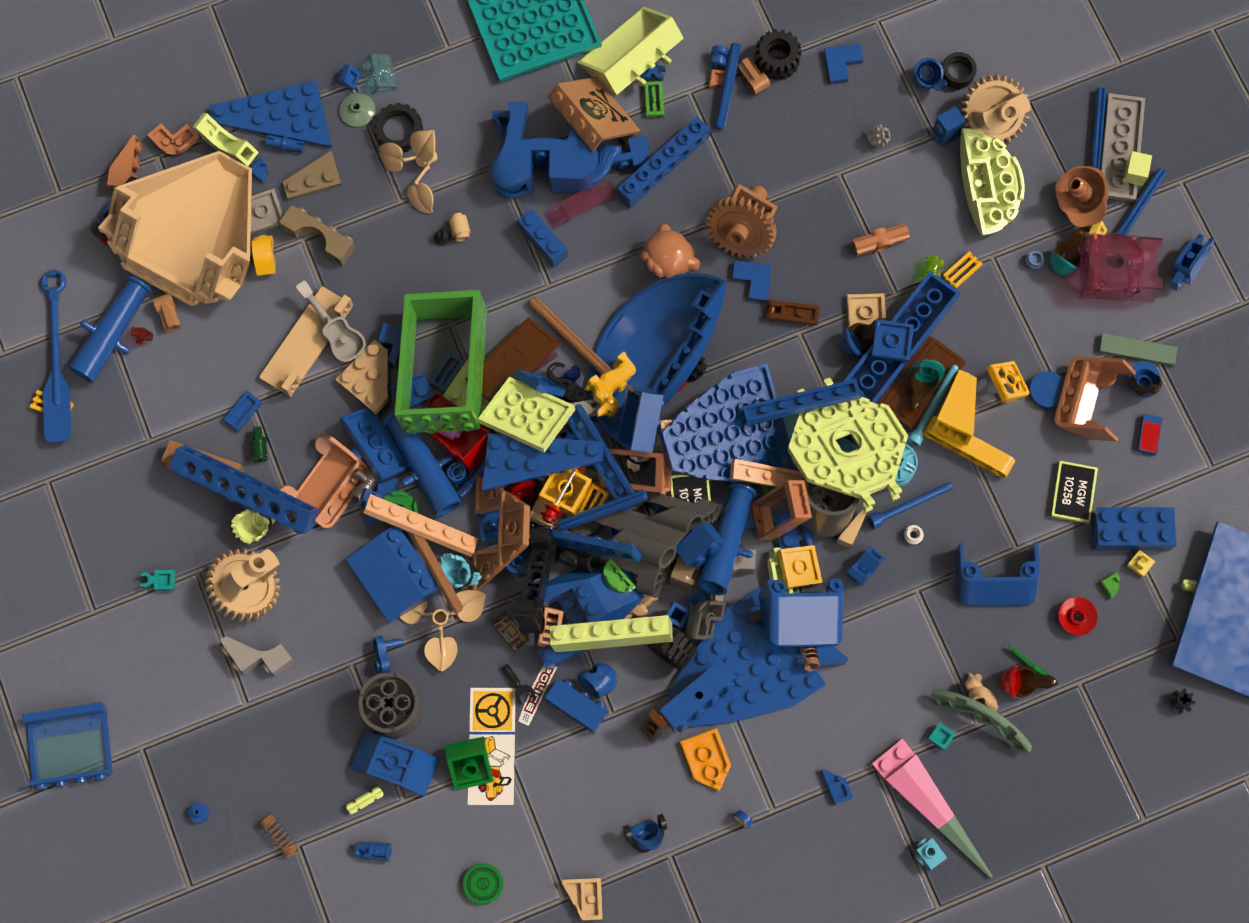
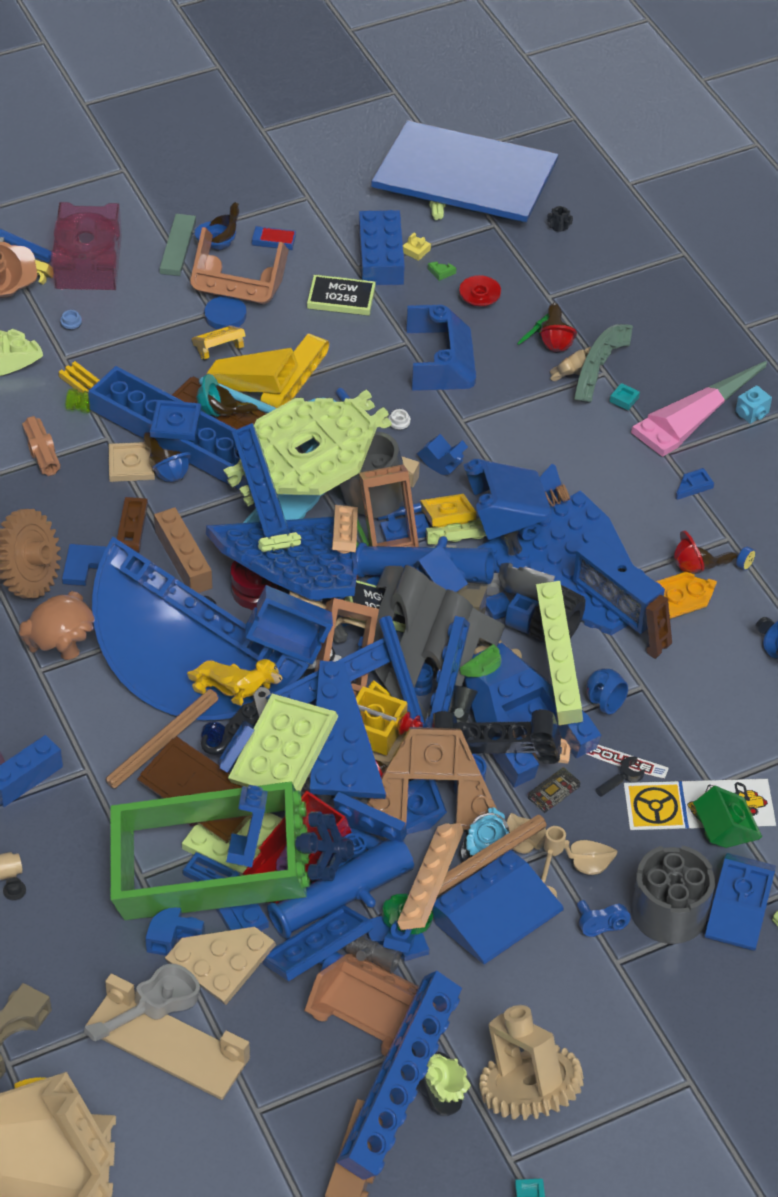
camera: 95 degrees left, 25 degrees down
(242, 411) = (272, 1118): blue tile -> none
(247, 658) = (630, 1076): light grey arch -> none
(258, 446) = (323, 1089): dark green hinge -> none
(441, 381) = (243, 848): none -> blue panel
(443, 459) = (341, 847): none -> dark blue plant
(473, 464) = (369, 819): none -> blue wing
(576, 705) = (639, 714): blue brick -> none
(736, 416) = (279, 542): none -> yellowish green axle
(742, 773) = (695, 559): none -> red piece
(759, 350) = (183, 550): none -> medium nougat brick
(1066, 256) = (72, 293): dark brown piece -> none
(1190, 261) = (77, 193): blue hinge -> none

